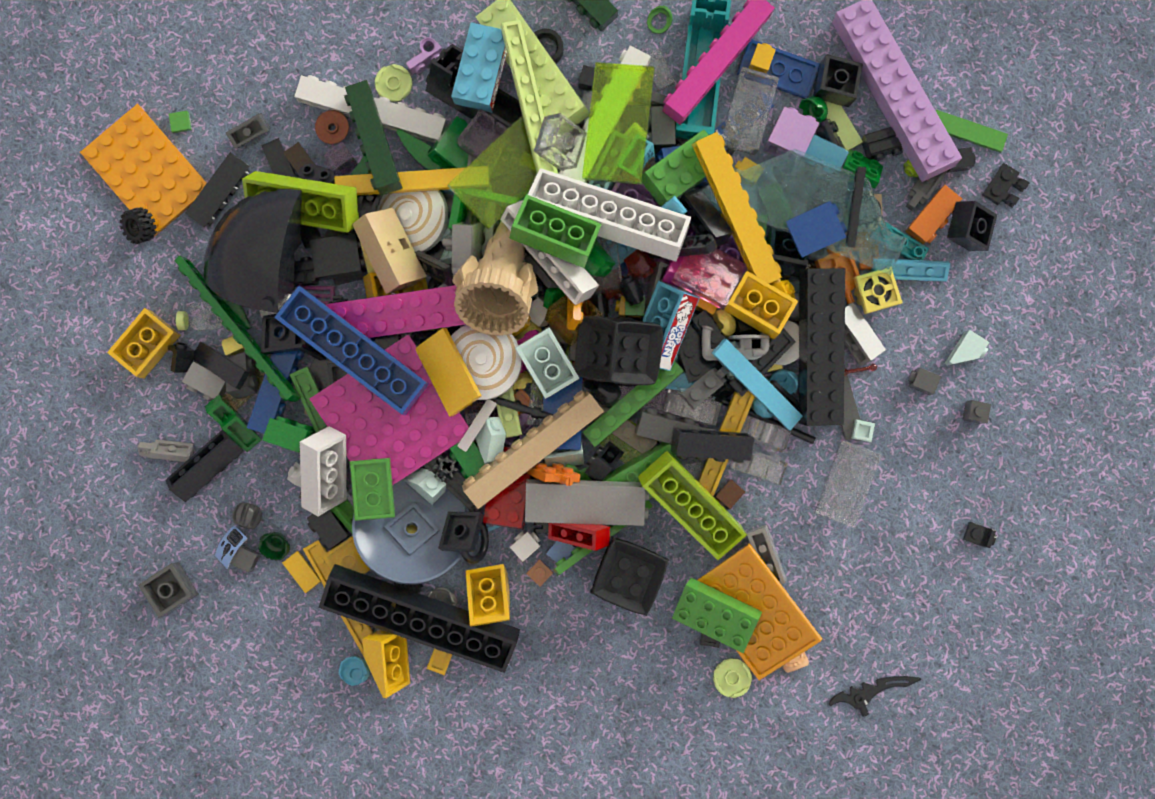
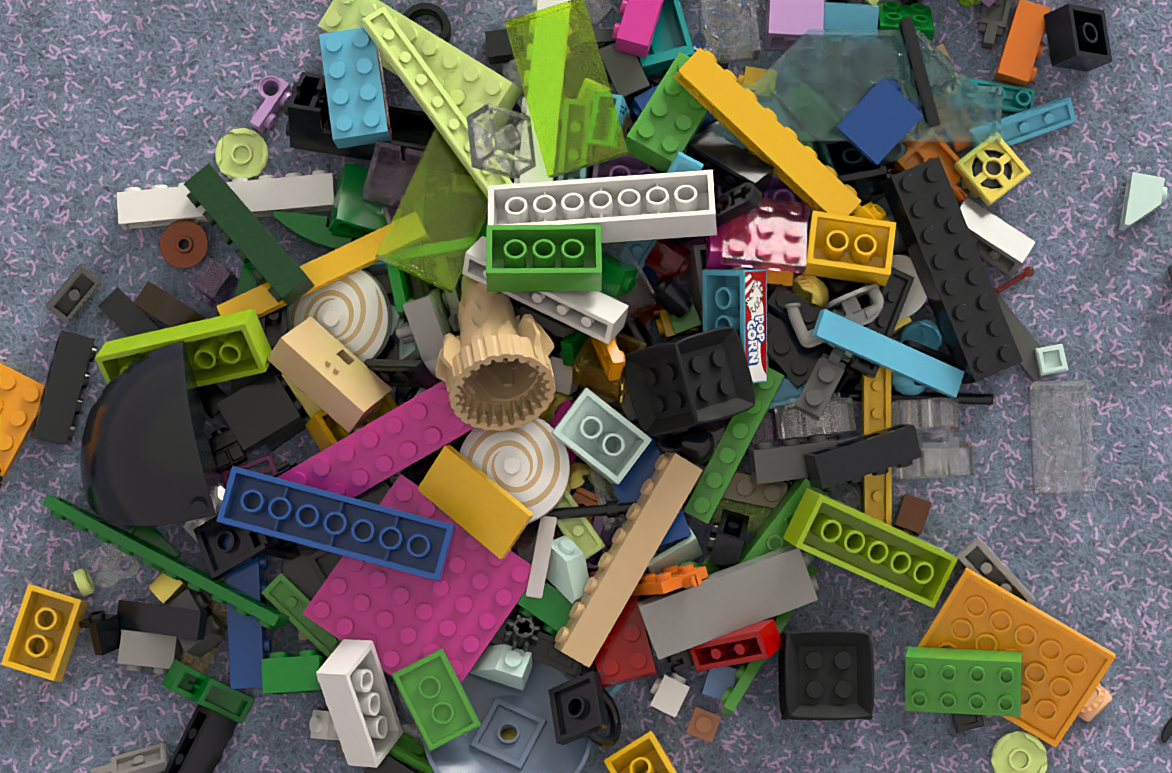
camera: 20 degrees left, 5 degrees down
(317, 173) = (190, 312): black plate -> none
(924, 381) = (1102, 262): dark grey brick -> none

